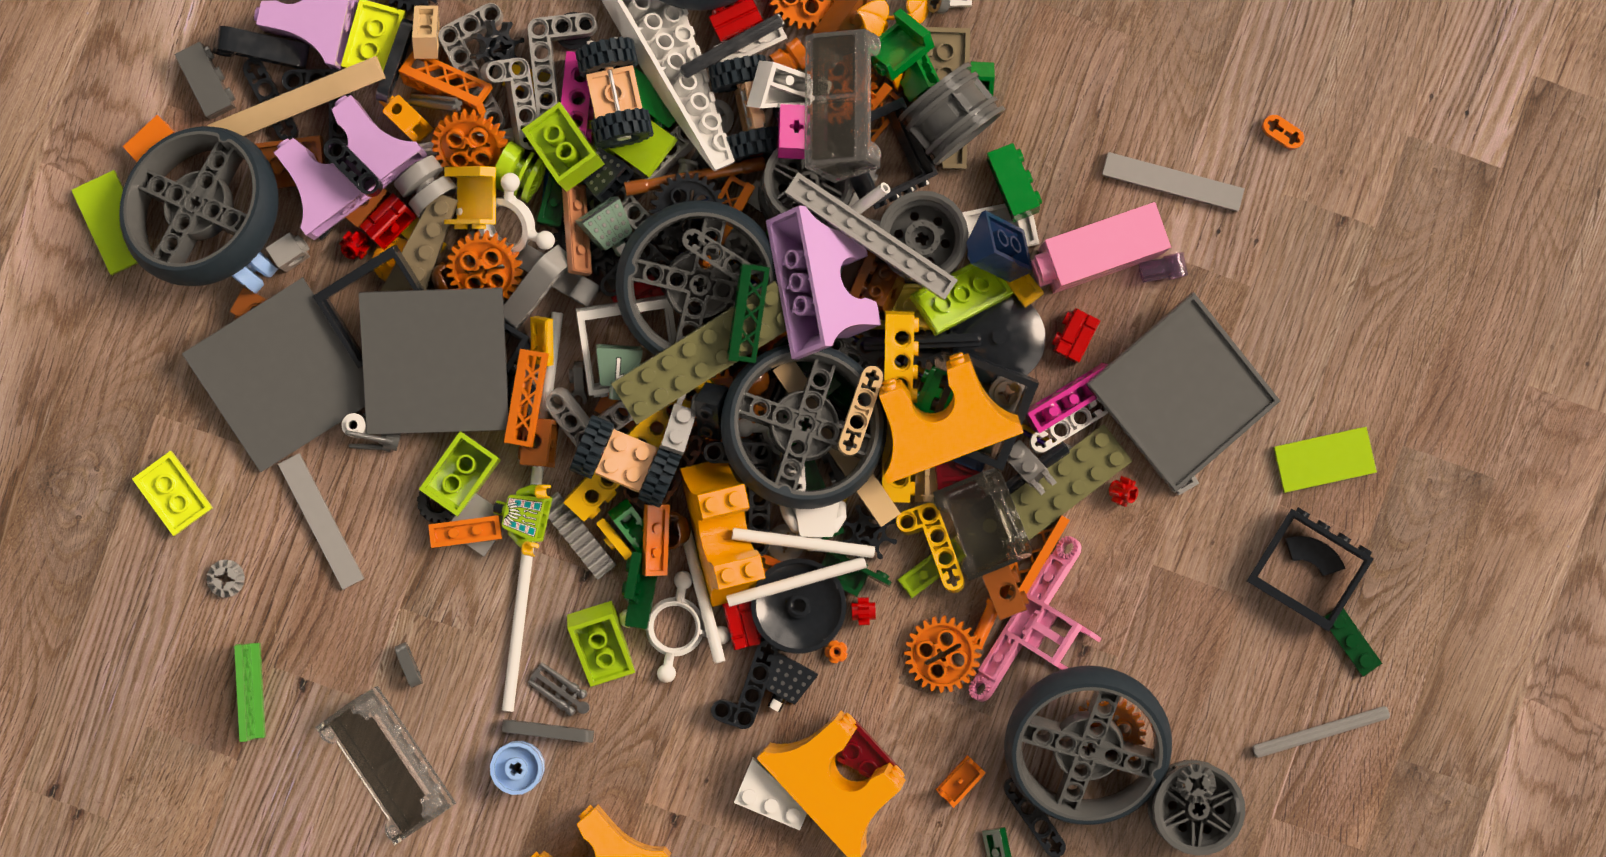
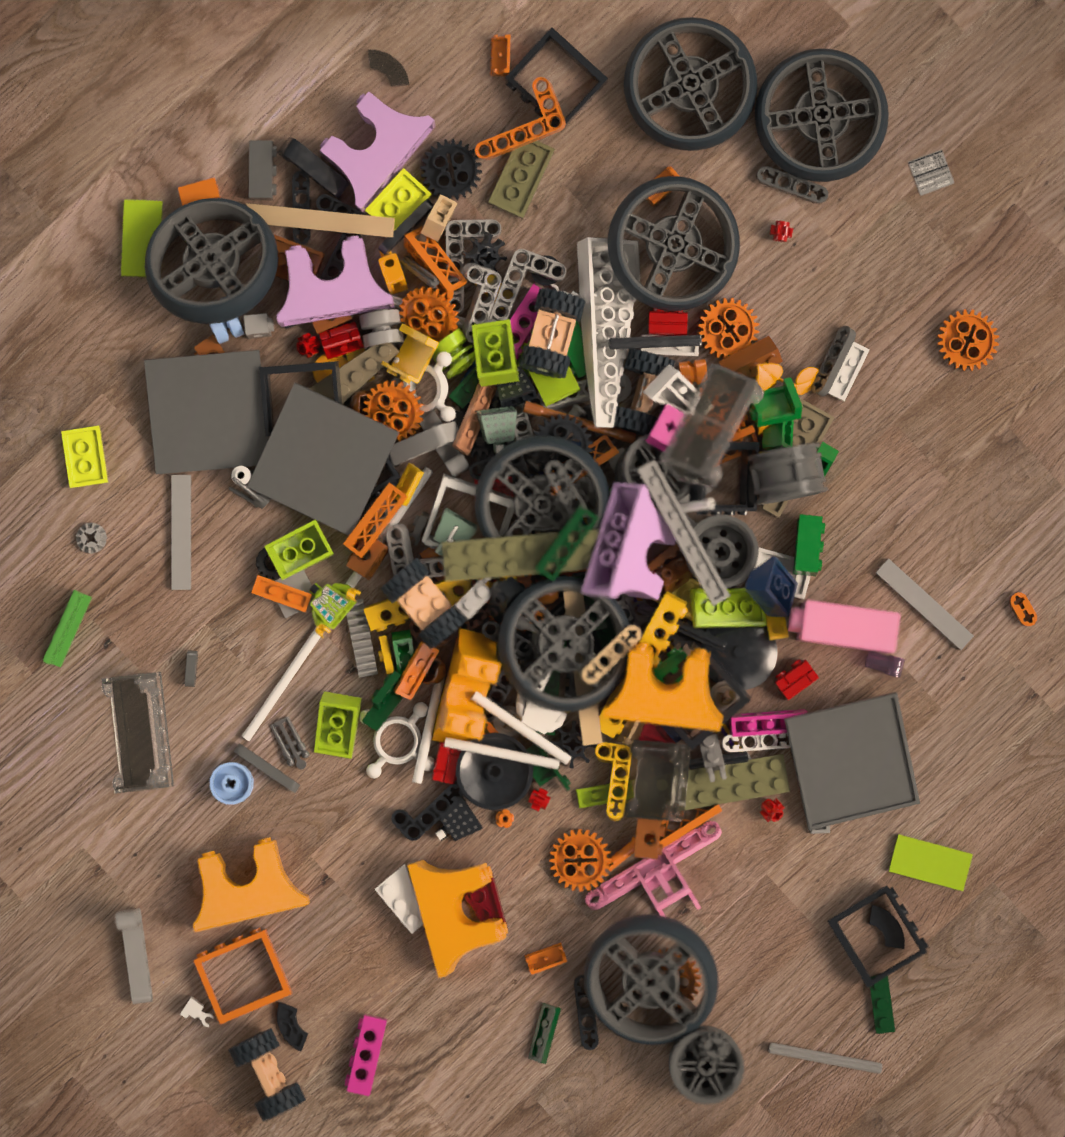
camera: 25 degrees right, 0 degrees up
(360, 165) = (330, 289): black beam -> none

